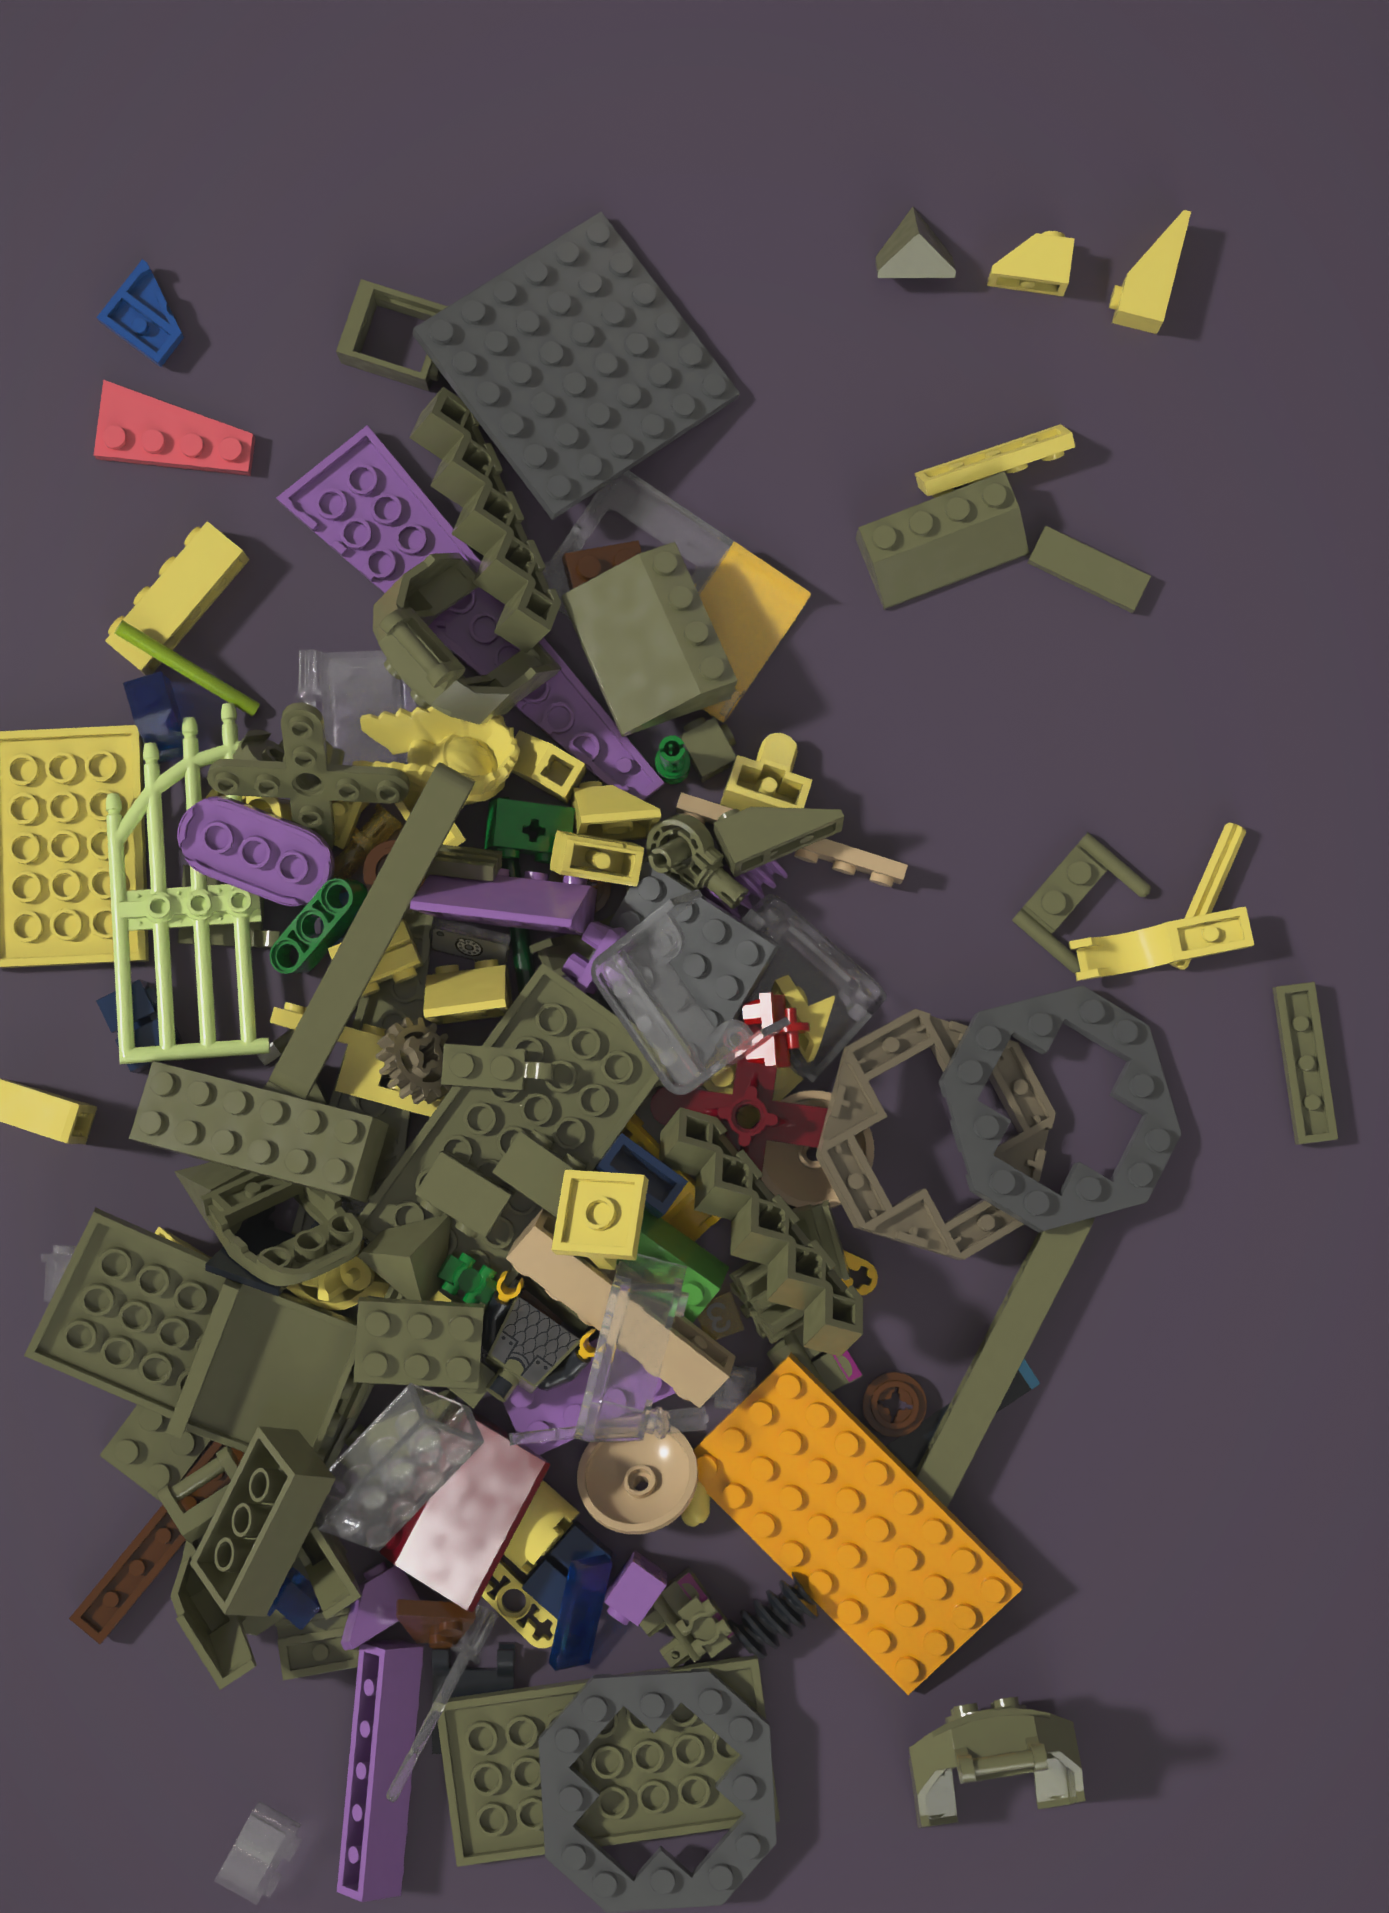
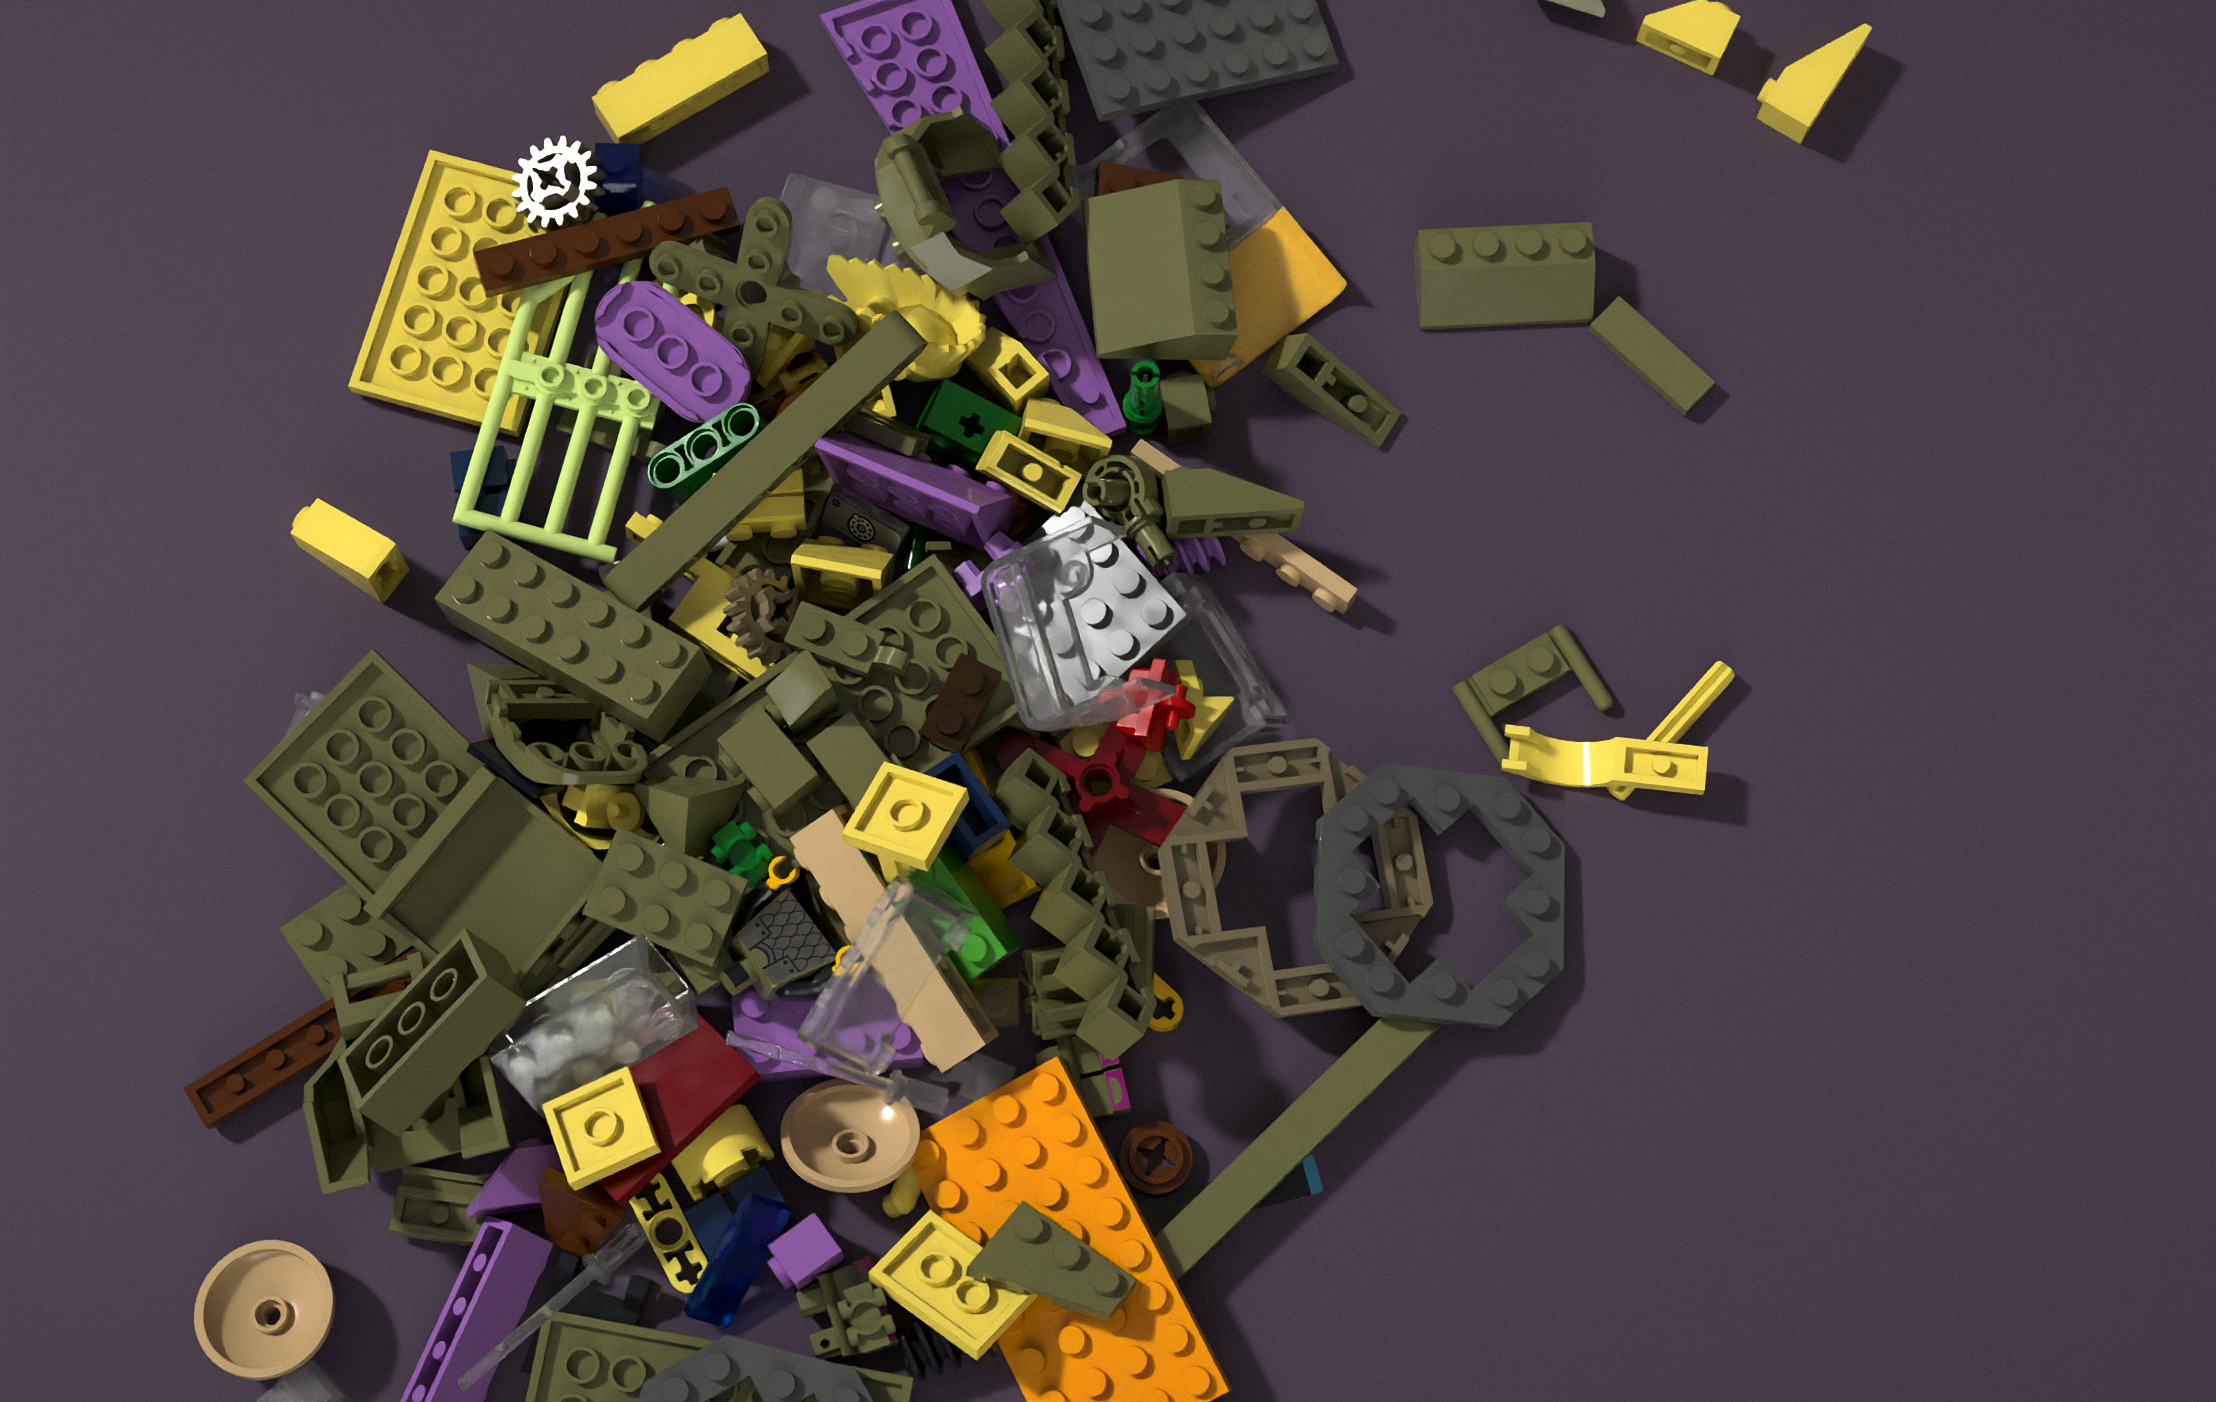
camera: 15 degrees right, 10 degrees down
(115, 717) = (568, 165): none -> gear
(163, 769) = (604, 242): none -> reddish brown plate
(180, 1788) = (243, 1294): none -> tan dish
(186, 668) = (655, 138): lime bar -> none
(296, 1600) = (433, 1143): clear blue panel -> none
(432, 1553) = (601, 1128): none -> light yellow plate
(472, 1130) = (801, 695): none -> olive slope
(609, 1089) = (960, 704): none -> dark brown plate
(766, 1576) = (930, 1281): none -> light yellow plate
(768, 779) = (1238, 452): light yellow brick -> none
(826, 690) = (1330, 388): none -> olive slope
(839, 1534) = (1049, 1261): none -> olive wing
(1006, 457) = (1603, 214): light yellow plate -> none
(1305, 1063) = (1723, 939): olive plate -> none

